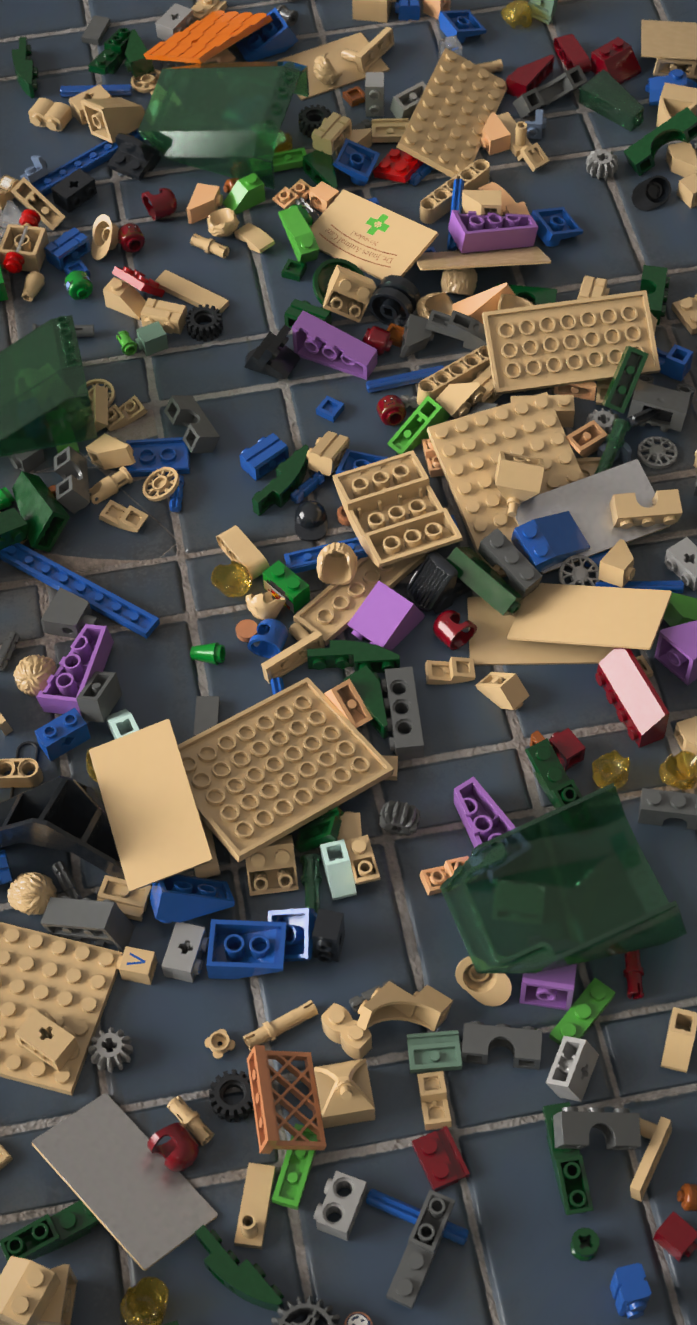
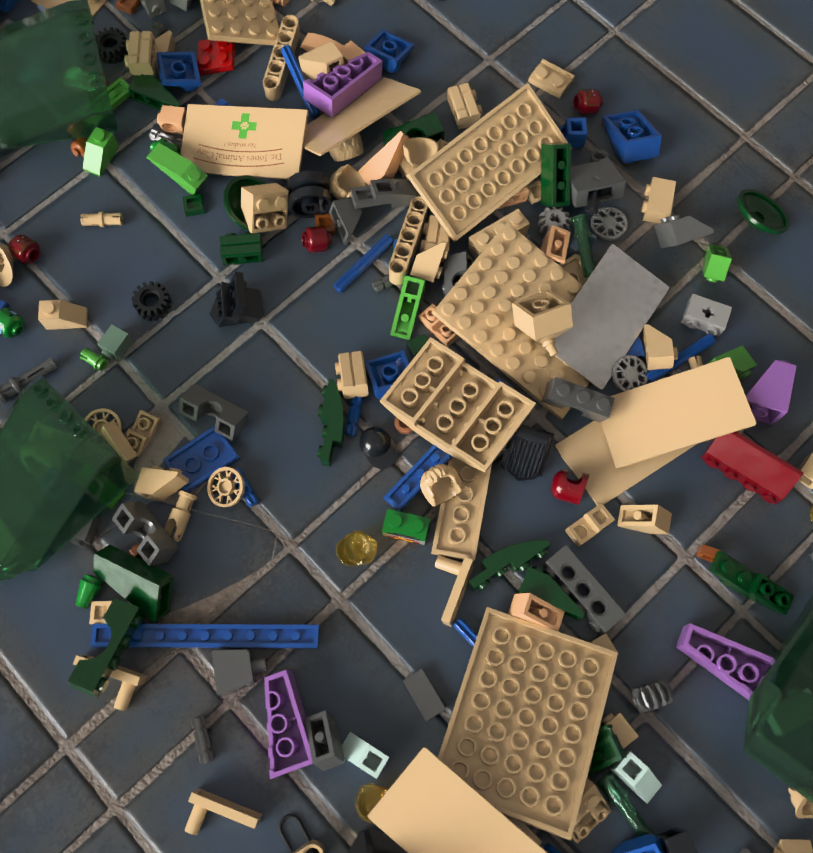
camera: 35 degrees left, 15 degrees up
(33, 673) = (247, 749): tan hair -> none
(62, 734) = (314, 796): blue brick -> none
(124, 518) = (213, 538): tan slope -> none
(139, 281) = (64, 292): red plate -> none
(162, 204) = (29, 201): dark red helmet -> none
(170, 315) = (112, 311): tan brick -> none
(190, 292) = (116, 275): tan tile -> none
(203, 202) = (67, 177): light nougat slope -> none
(209, 653) = (384, 631): green cone -> none
(222, 222) = (99, 190): tan hair -> none
(241, 549) = (344, 514): tan beam -> none
(246, 629) = (399, 587): nougat tile -> none
(254, 237) = (140, 191): tan slope -> none
(263, 606) = (401, 557): tan hair -> none
(264, 456) = (297, 407): blue brick -> none
(272, 638) = (428, 586): blue helmet -> none
(287, 196) = (139, 133): light nougat slope -> none
(330, 409) = (319, 326): blue tile -> none
(332, 347) = (284, 267): medium lavender wedge -> none
(362, 860) = (653, 757): tan slope -> none
(385, 617) = (509, 510): medium lavender slope -> none
(388, 129) = (184, 22): tan plate -> none
(391, 410) = (375, 302): dark red head -> none
(420, 174) = (239, 54): blue axle -> none
(435, 877) = (718, 719): light nougat slope -> none
(484, 580) = (568, 427): dark green slope -> none
(549, 540) = (594, 360): blue slope -> none
(567, 748) = (730, 542): dark red brick -> none
(611, 769) = (778, 543): clear yellow hair -> none
(628, 512) = (660, 277): tan arch -> none
(655, 281) = (504, 65): dark green arch -> none

